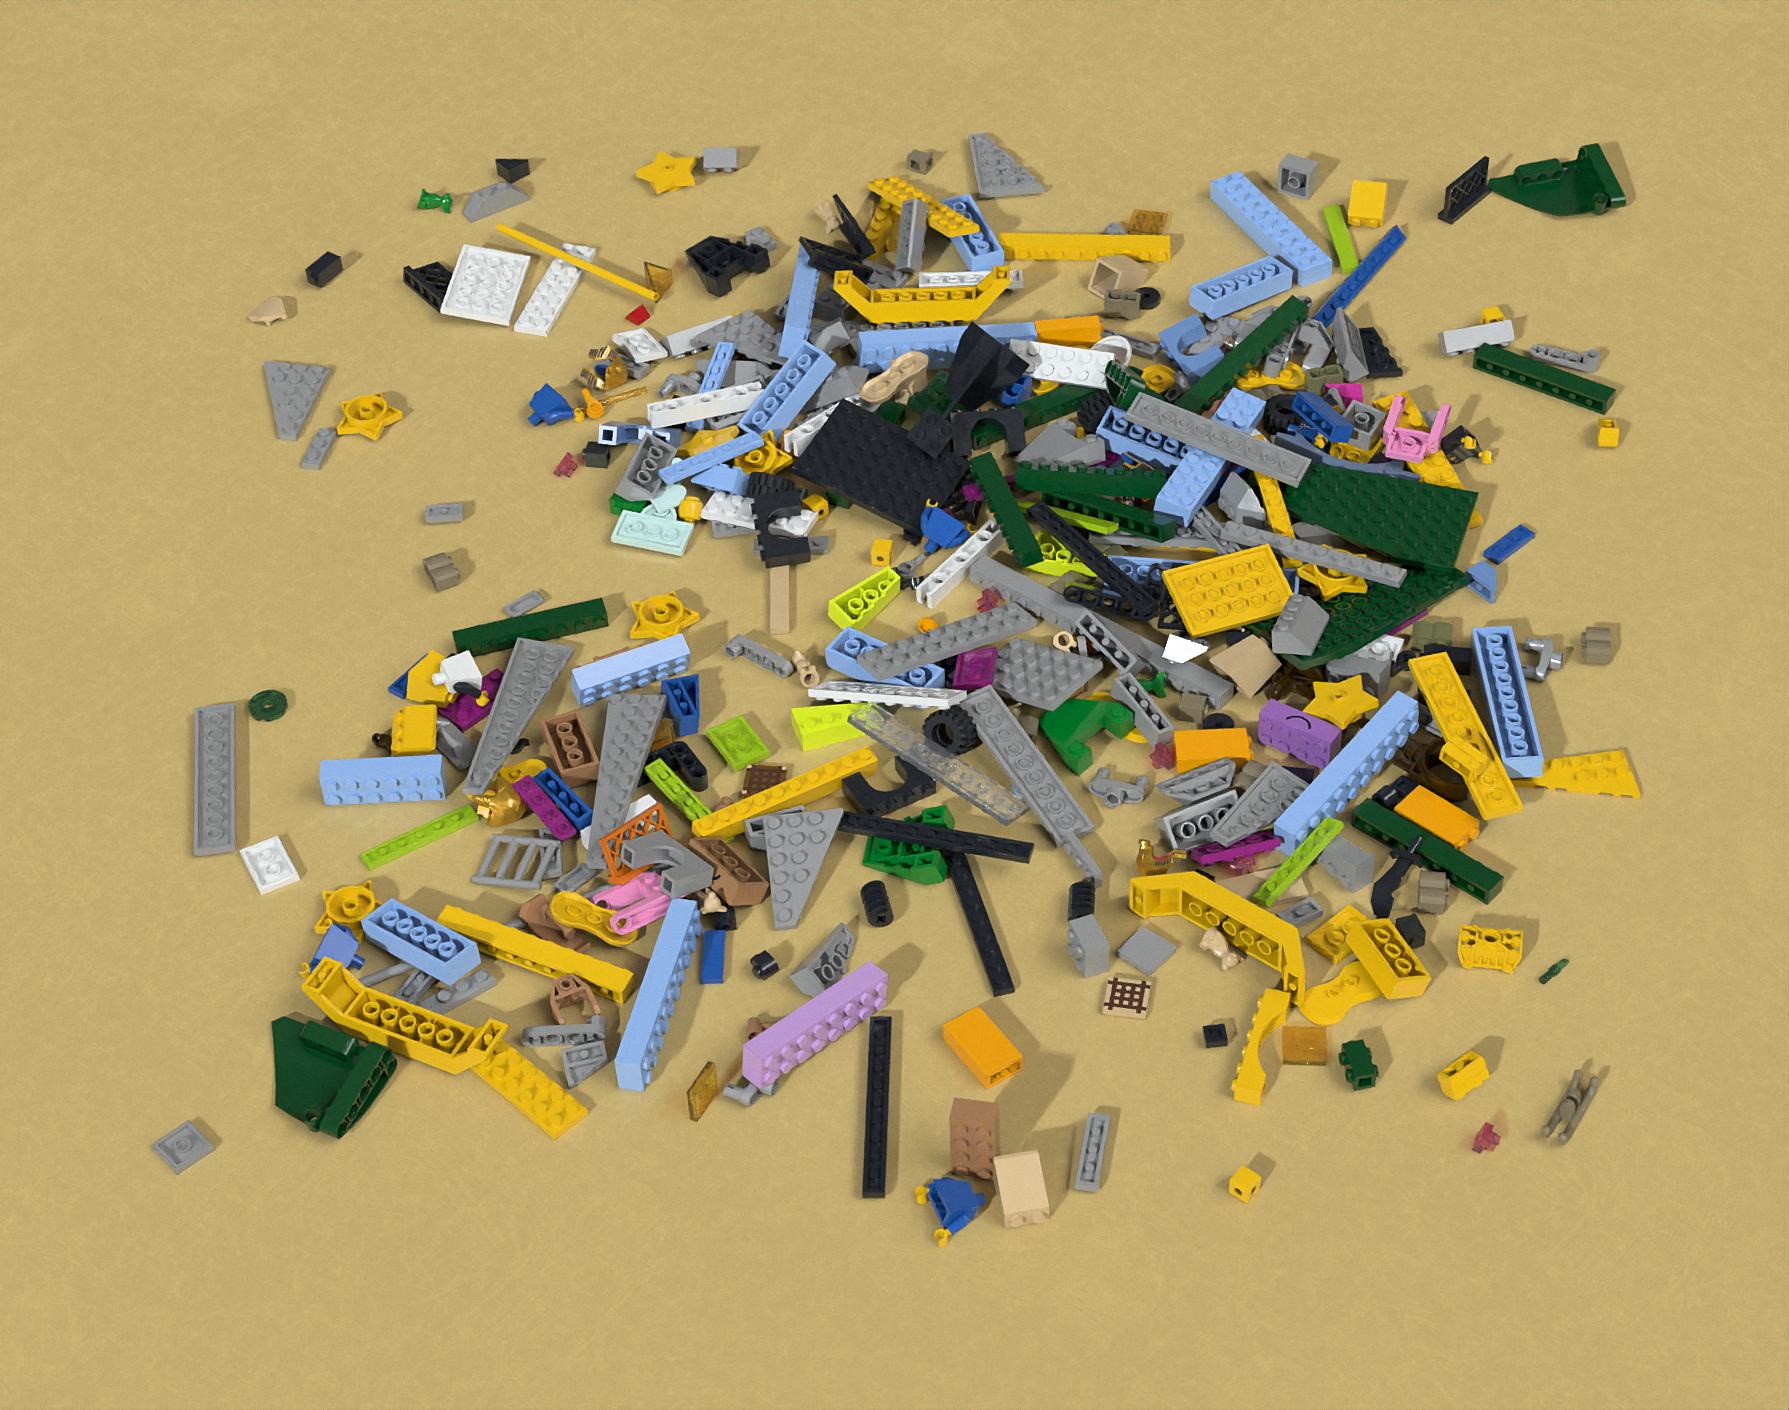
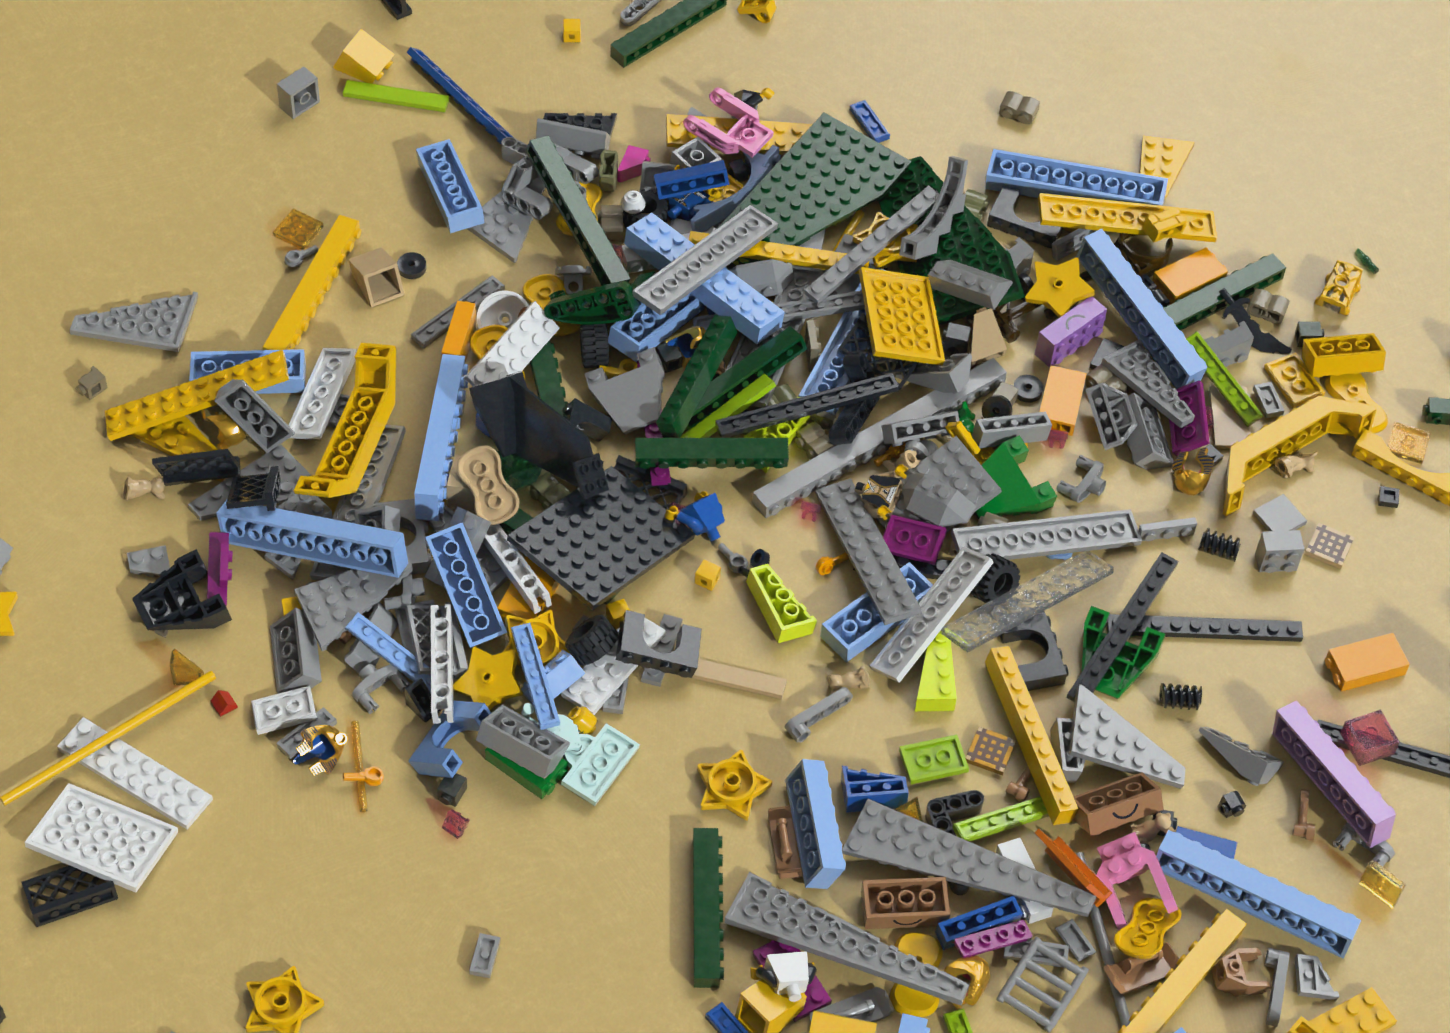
camera: 80 degrees left, 10 degrees up
(441, 571) = (583, 975): dark tan brick -> none
(524, 604) = (661, 907): light grey tile -> none
(552, 407) = (354, 815): blue torso -> none
(657, 847) = (1127, 824): light grey arch -> none
(761, 271) = (218, 565): none -> magenta bracket
(872, 1048) = (1369, 737): none -> clear pink piece
(910, 537) = (688, 548): black piece -> none
(958, 565) = (749, 516): white piece -> none
(1014, 635) = (882, 492): none -> torso
(1019, 668) = (936, 501): none -> light grey wedge
(1111, 673) = (958, 429): none -> yellow plate
(1122, 304) = (424, 283): dark tan brick -> none
(1171, 702) = (998, 401): none -> black piece
(1180, 336) = (499, 263): medium blue arch -> none
(1181, 549) = (813, 346): none -> dark tan plate
(1228, 344) = (526, 222): dark tan plate -> none
(1270, 228) = (357, 139): light blue brick -> none
(1280, 394) = (633, 202): none -> white cone
(1341, 588) = (938, 222): none -> light grey arch
(1401, 659) = (999, 234): black plate -> none
(1473, 337) = (596, 48): brick -> none
(1483, 580) = (916, 147): medium blue slope -> none
(1548, 661) = (1024, 143): light grey connector -> none

